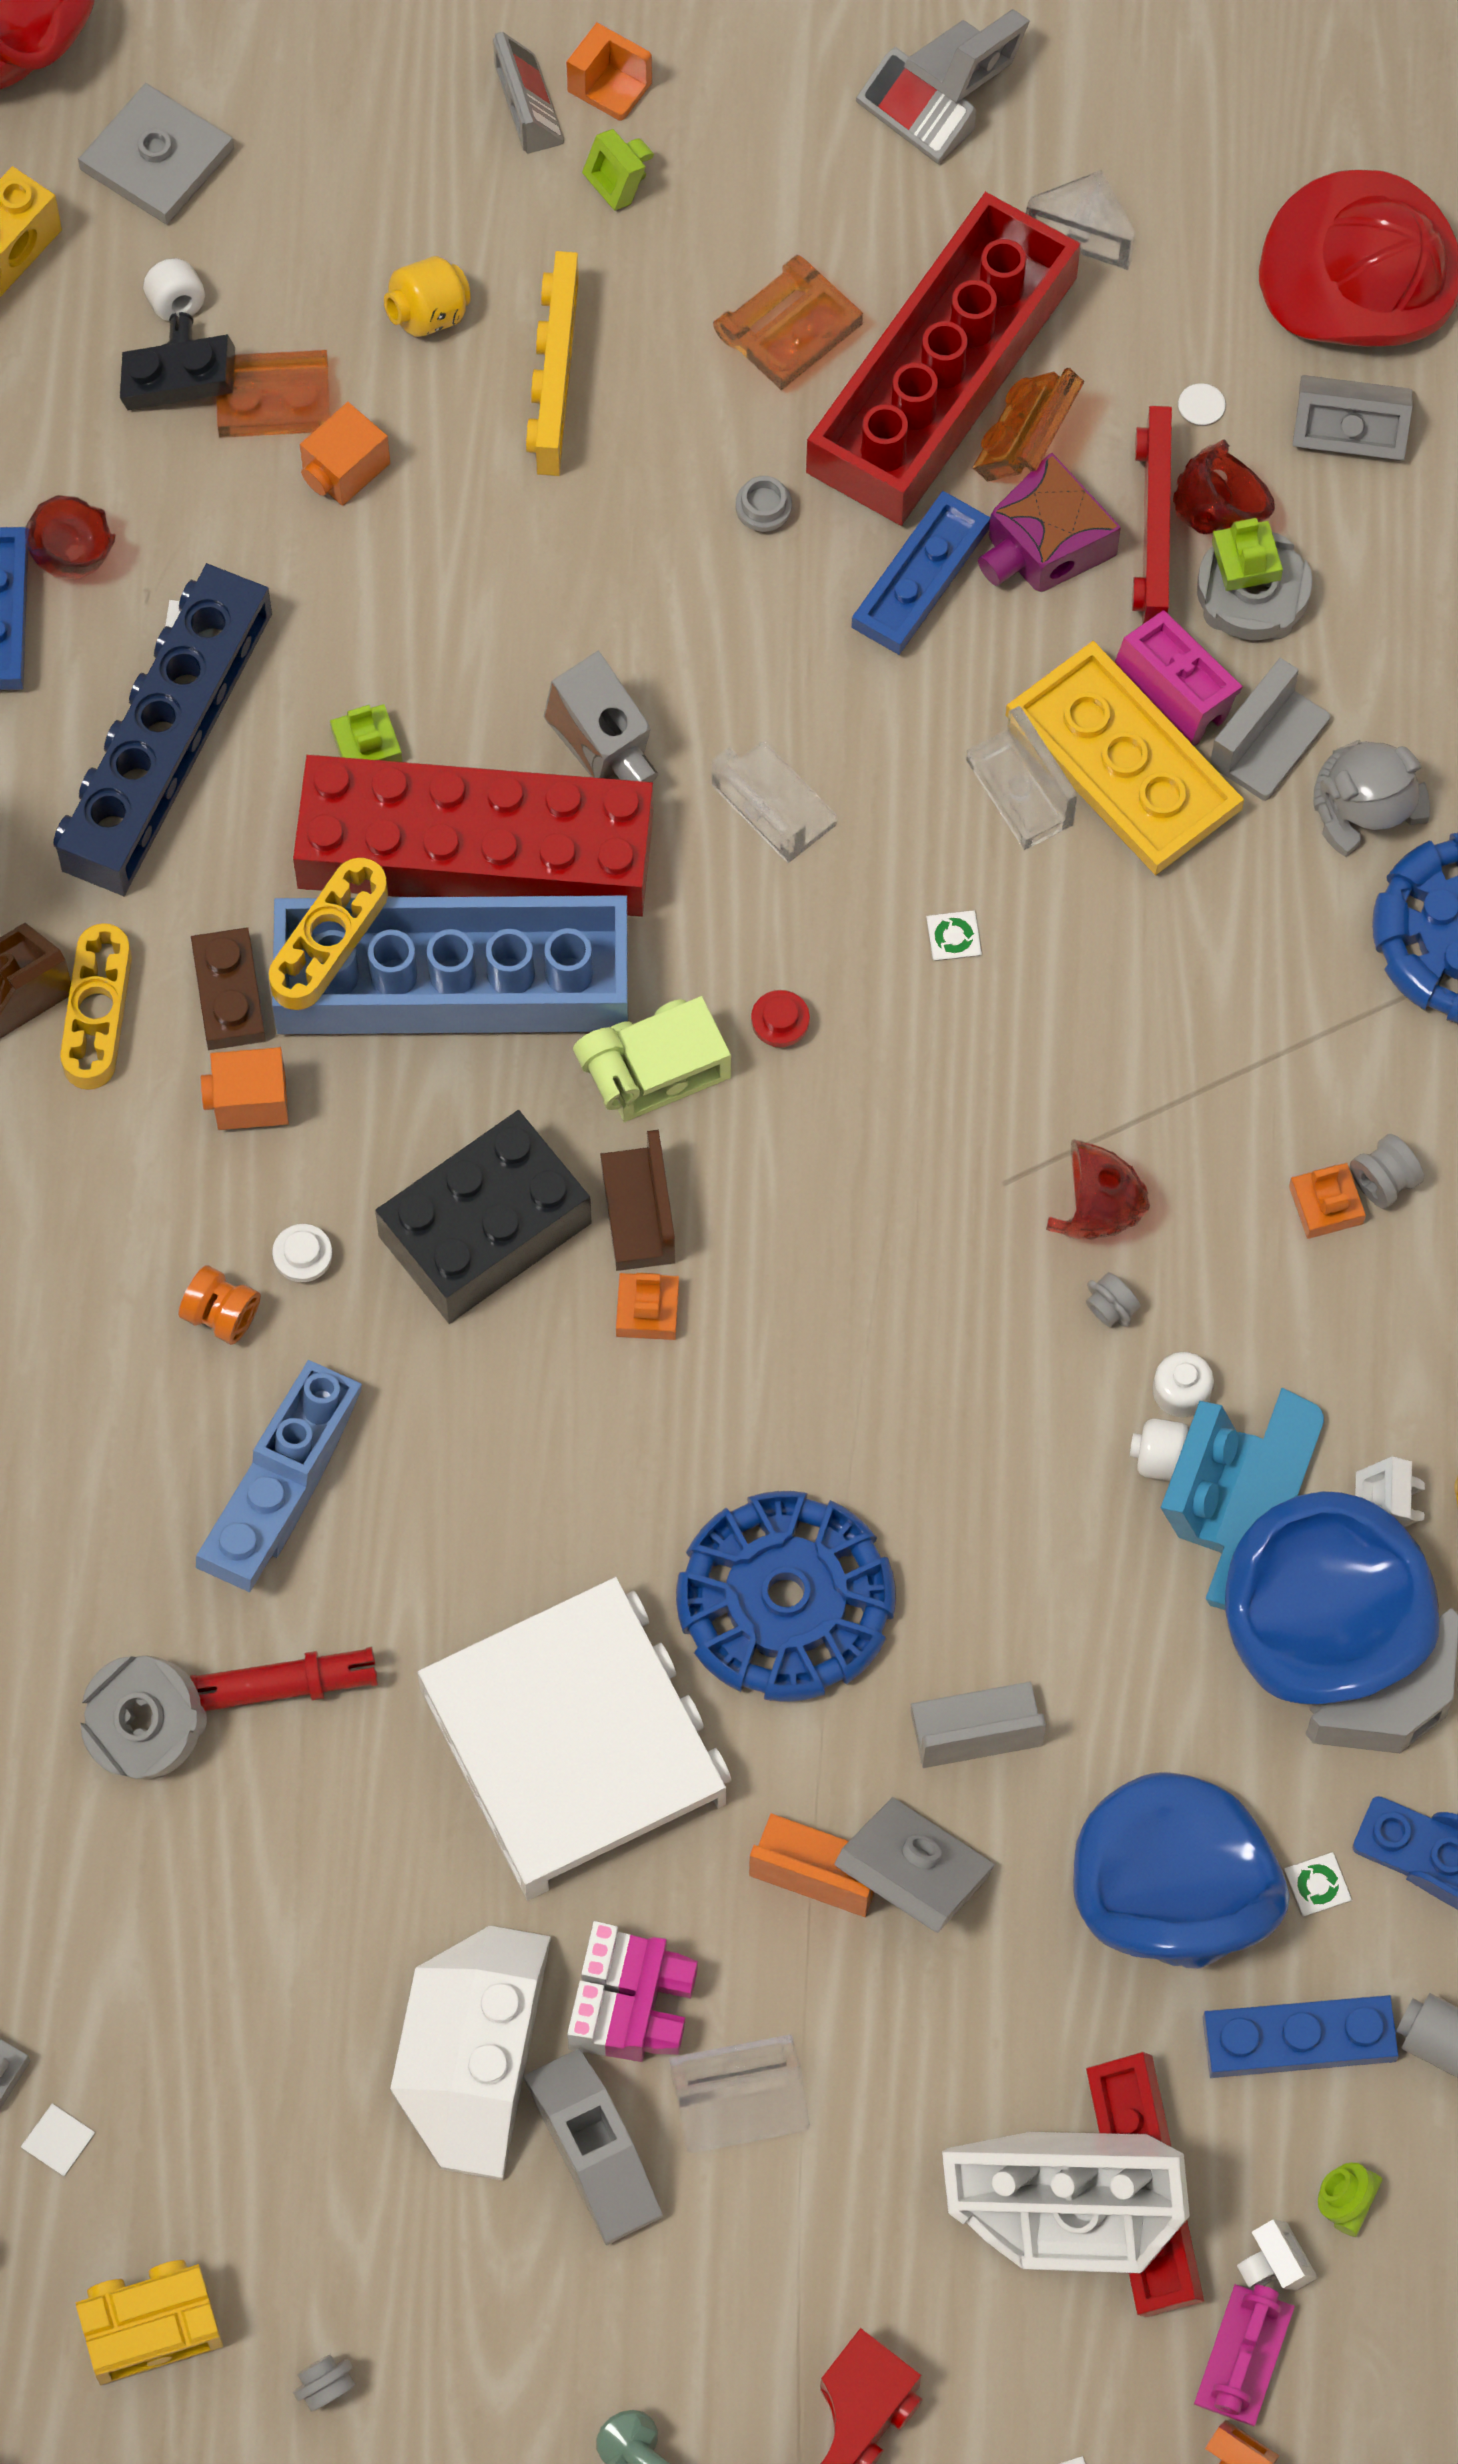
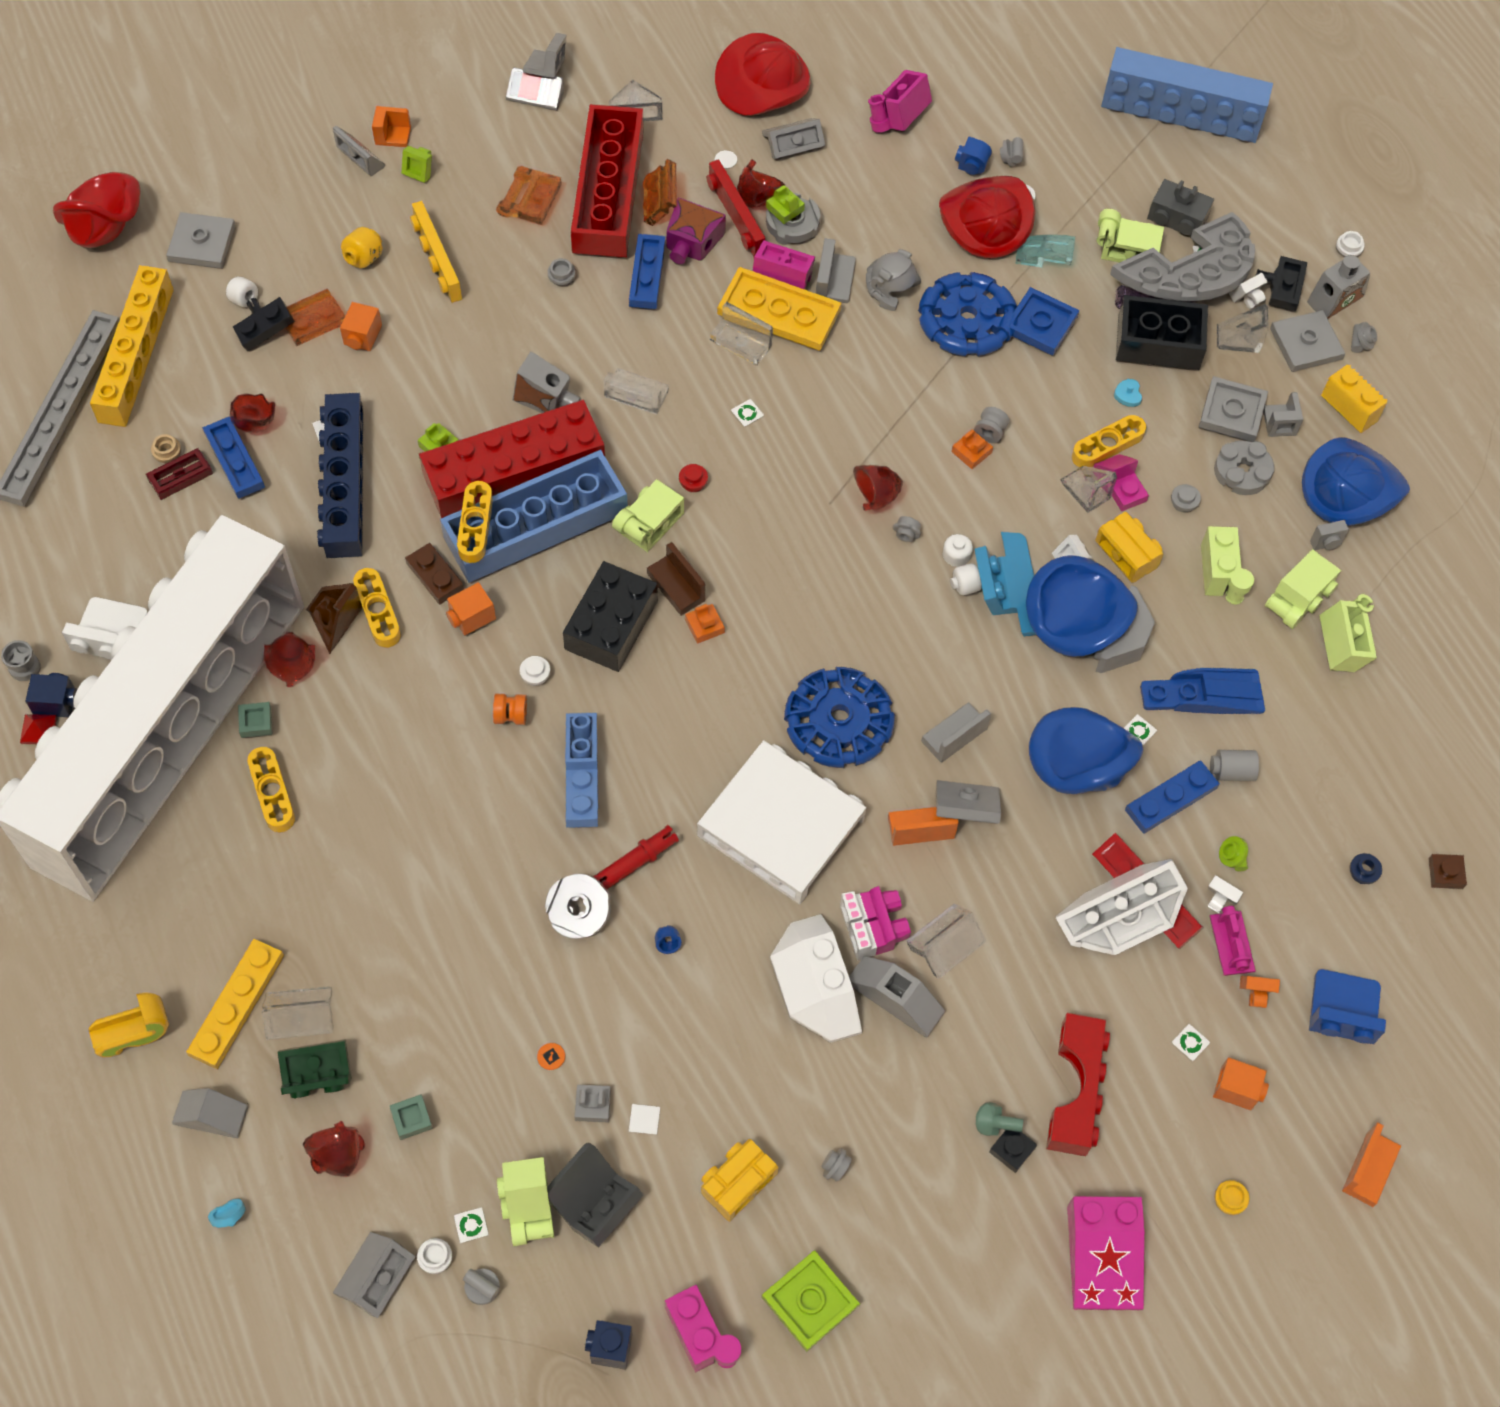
camera: 30 degrees left, 5 degrees down
(251, 1845) = (671, 946): none -> blue hinge

